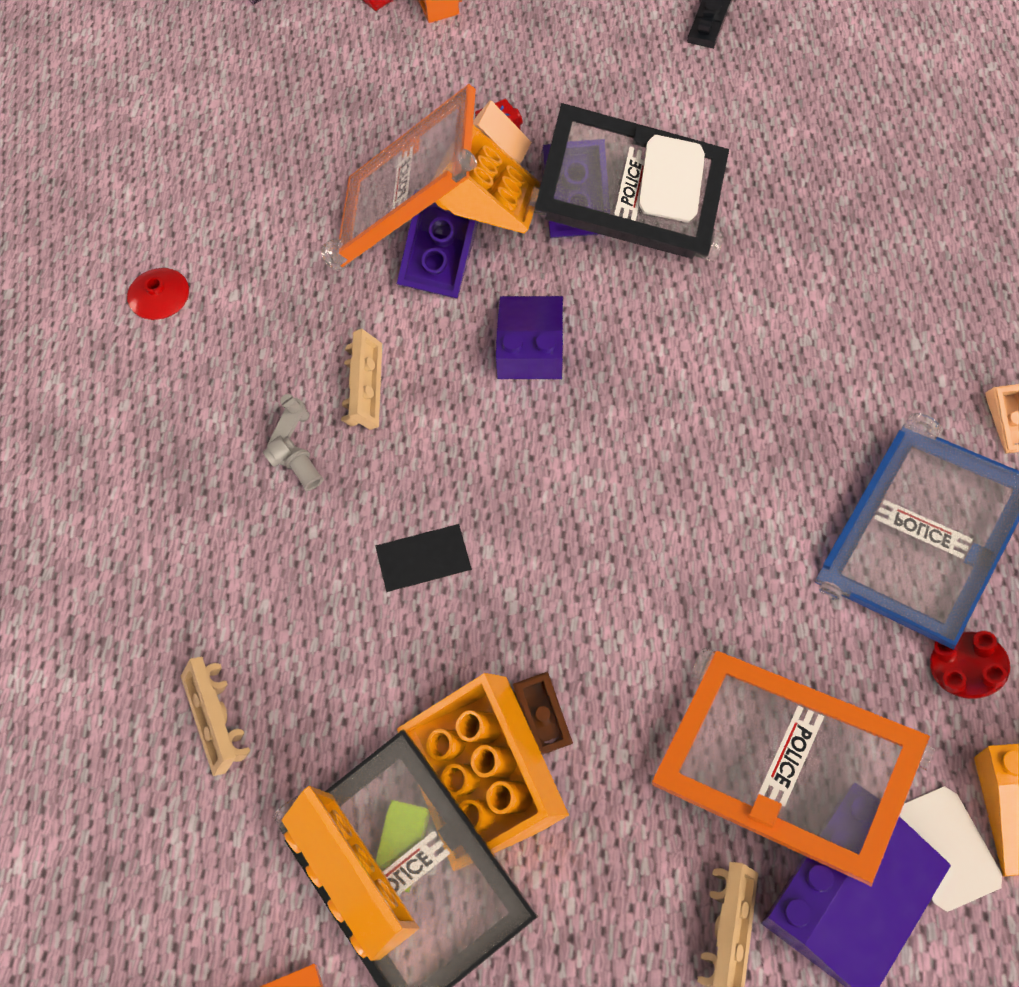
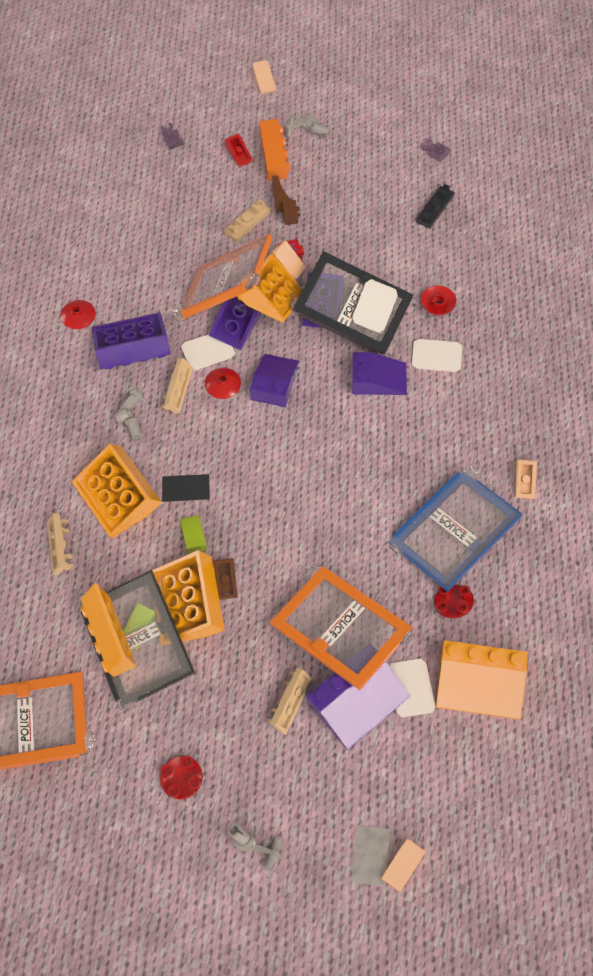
camera: 10 degrees right, 0 degrees up
(262, 319) = (130, 341): none -> dark purple slope
(298, 590) = (116, 490): none -> light orange slope
(398, 312) = (206, 351): none -> white piece
(412, 88) = (247, 220): none -> tan plate
(441, 370) = (223, 389): none -> red dish
(460, 641) = (193, 534): none -> lime slope
(466, 49) = (284, 203): none -> reddish brown slope
(704, 293) = (378, 375): none -> dark purple slope
(768, 153) = (440, 295): none -> red dish
(791, 242) = (437, 355): none -> white piece

